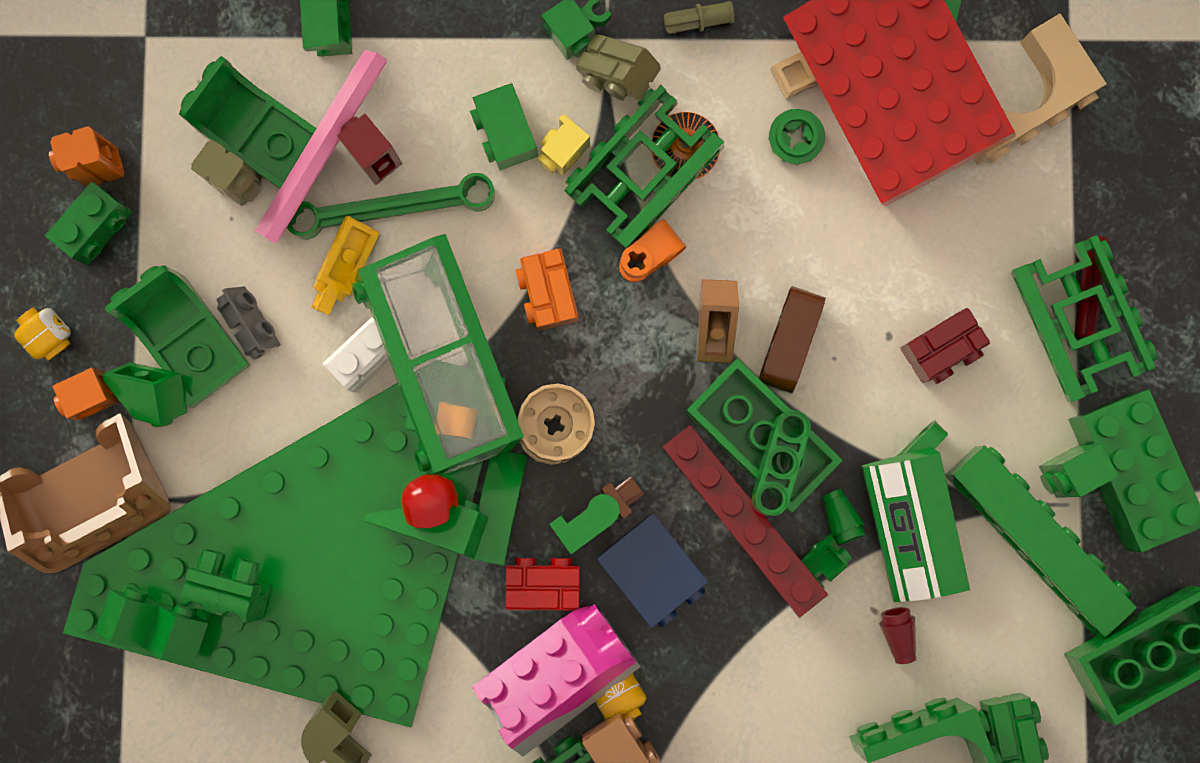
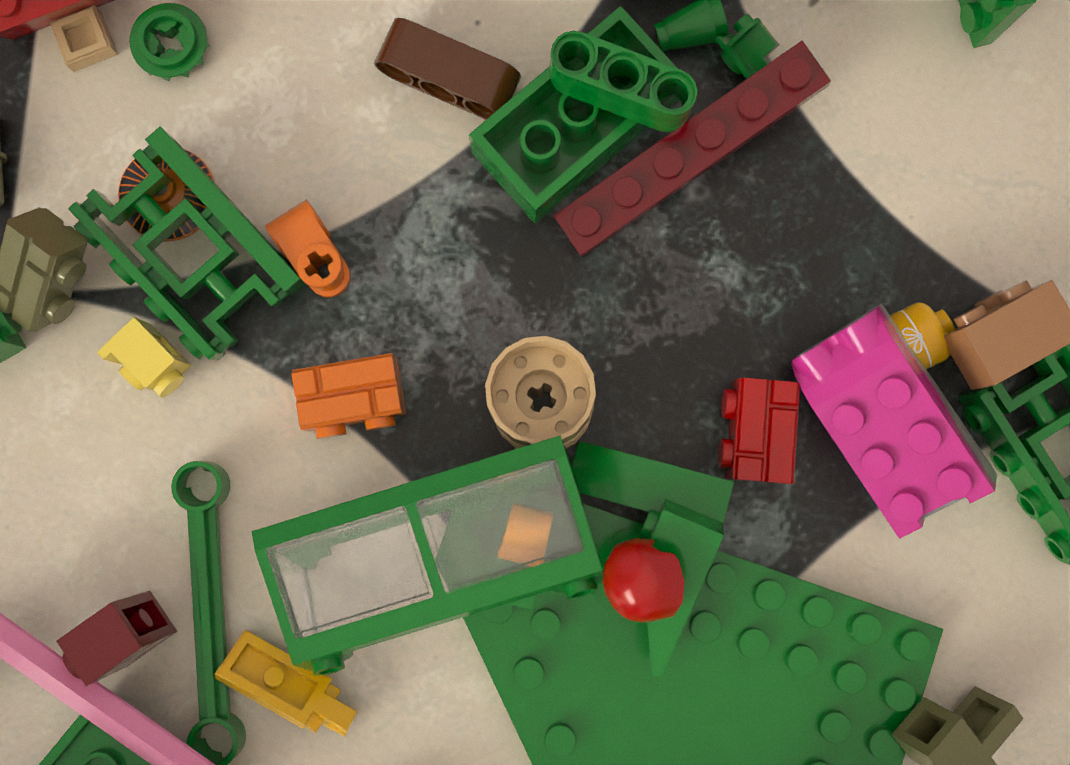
camera: 90 degrees left, 0 degrees up
(358, 357) = (422, 672): white brick -> none
(505, 127) = (109, 439): green brick -> none
(599, 515) = (671, 345): green hips -> none
(653, 571) = (748, 280): dark blue brick -> none
(717, 320) = (412, 165): medium nougat slope -> none

